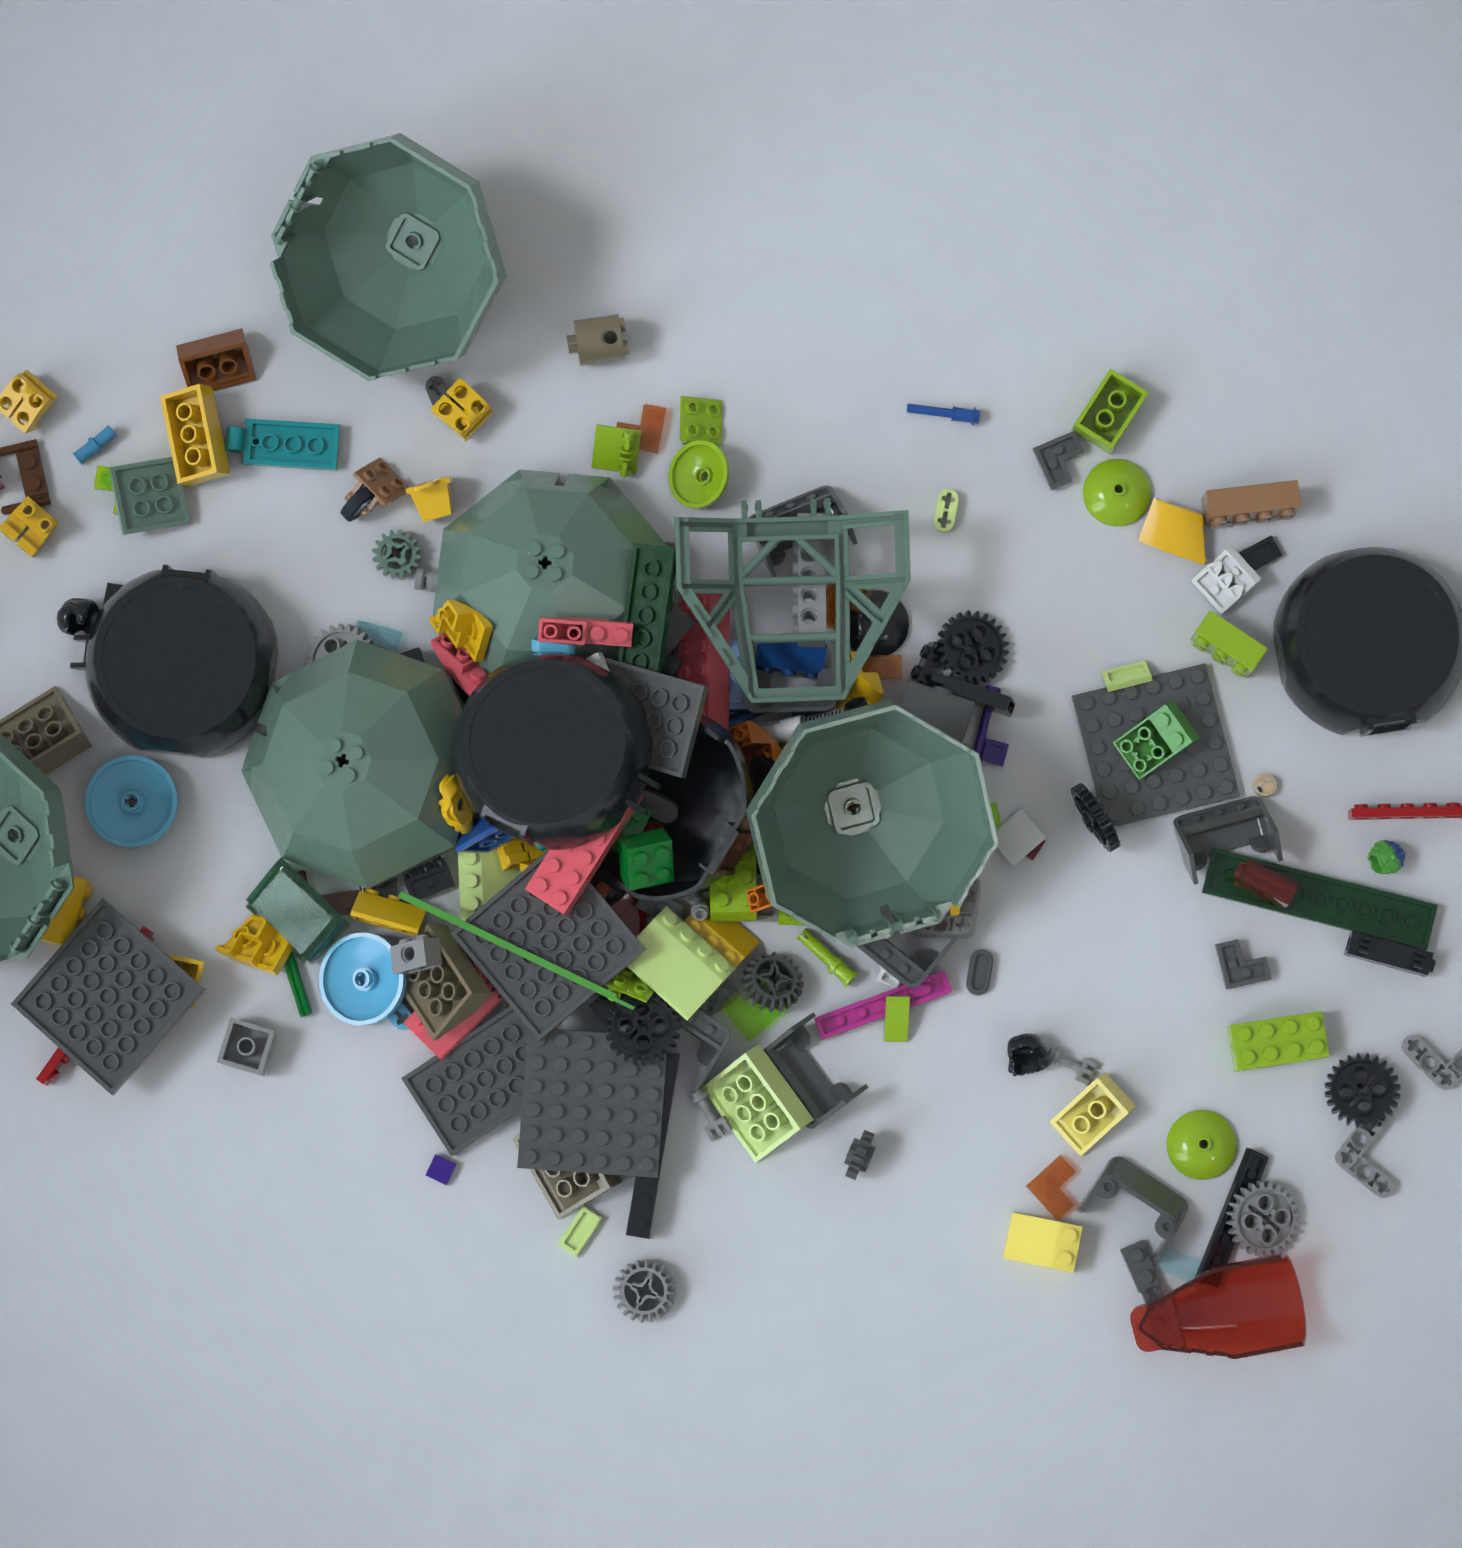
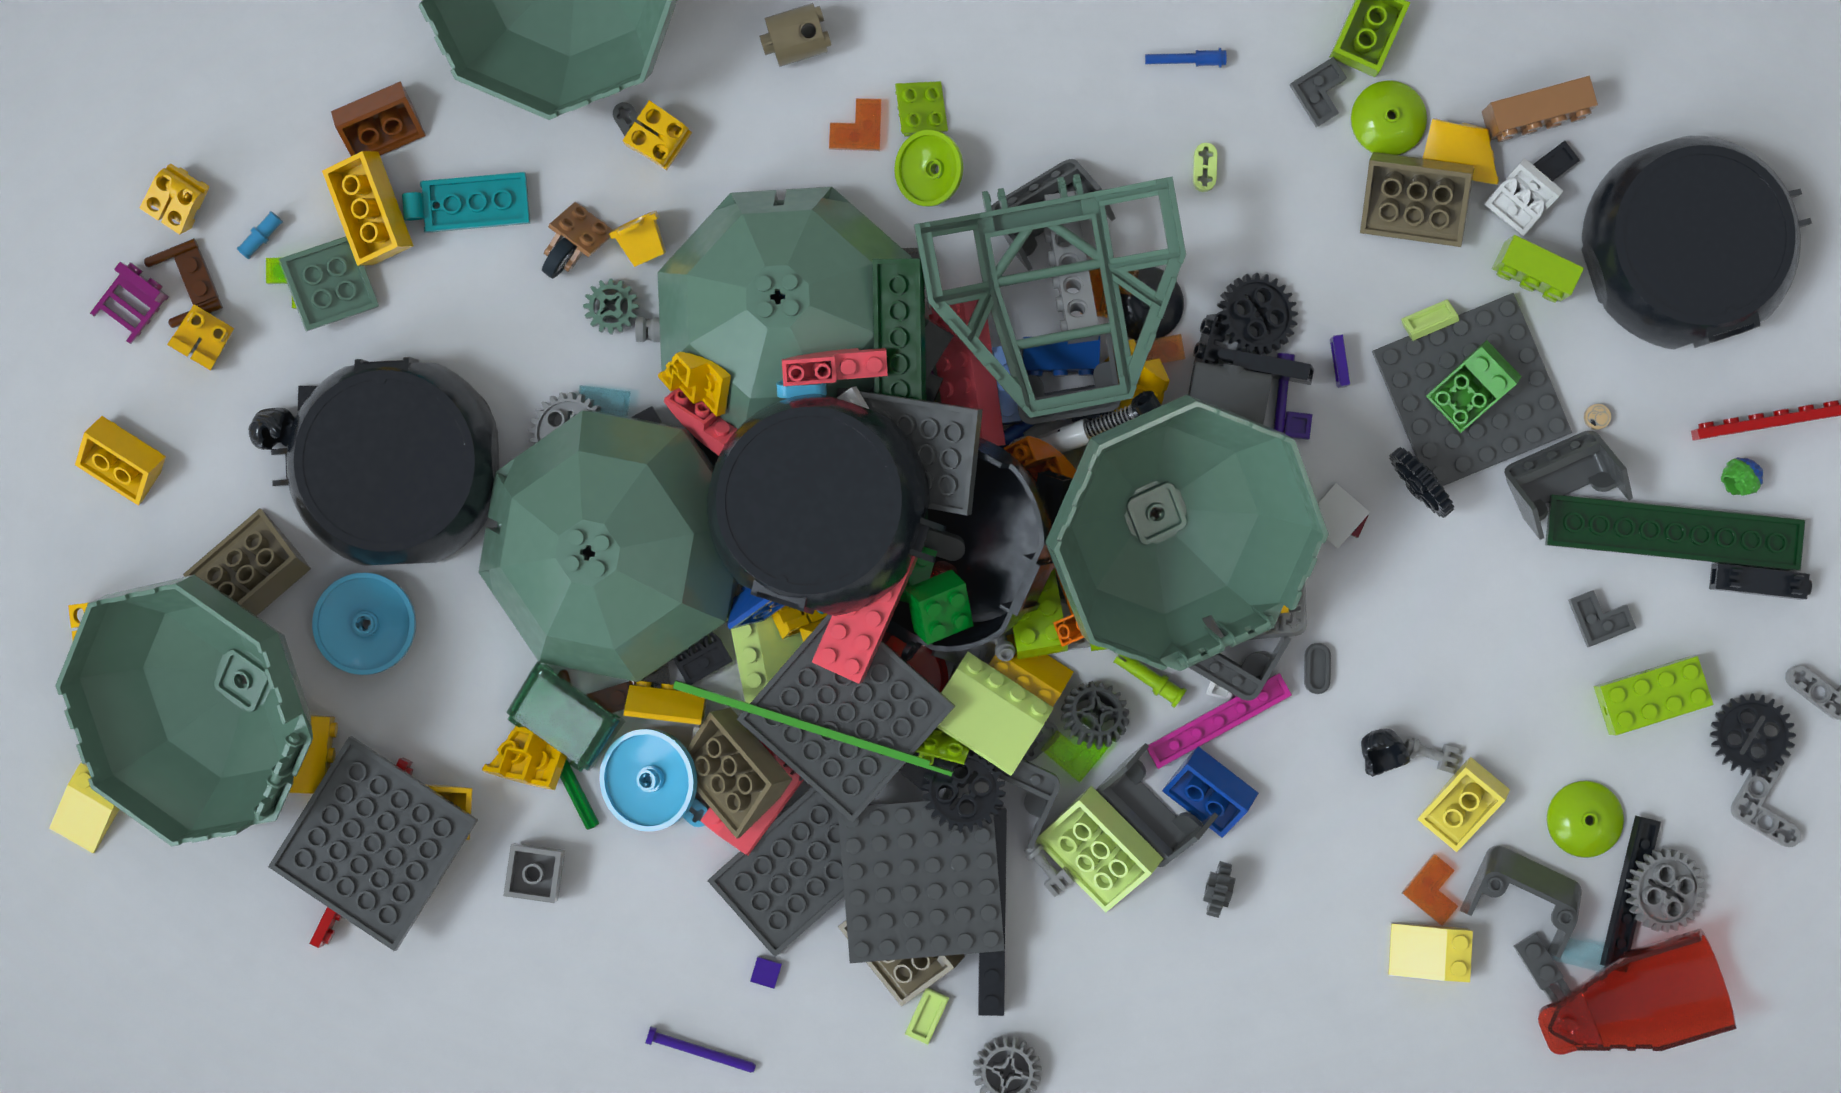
camera: 10 degrees left, 5 degrees up
(331, 1212) = (697, 1050): none -> dark purple bar
(415, 955) = (703, 748): light grey brick -> none
(451, 793) = (714, 569): yellow piece -> none
(616, 449) = (833, 153): lime hinge -> none
(864, 1061) = (1208, 788): none -> blue slope
(896, 1018) = (1235, 733): lime slope -> none
(1040, 700) = (1339, 361): none -> dark purple tile
(1129, 567) = (1416, 199): none -> dark tan slope
(1265, 883) = (1618, 527): clear red brick -> none

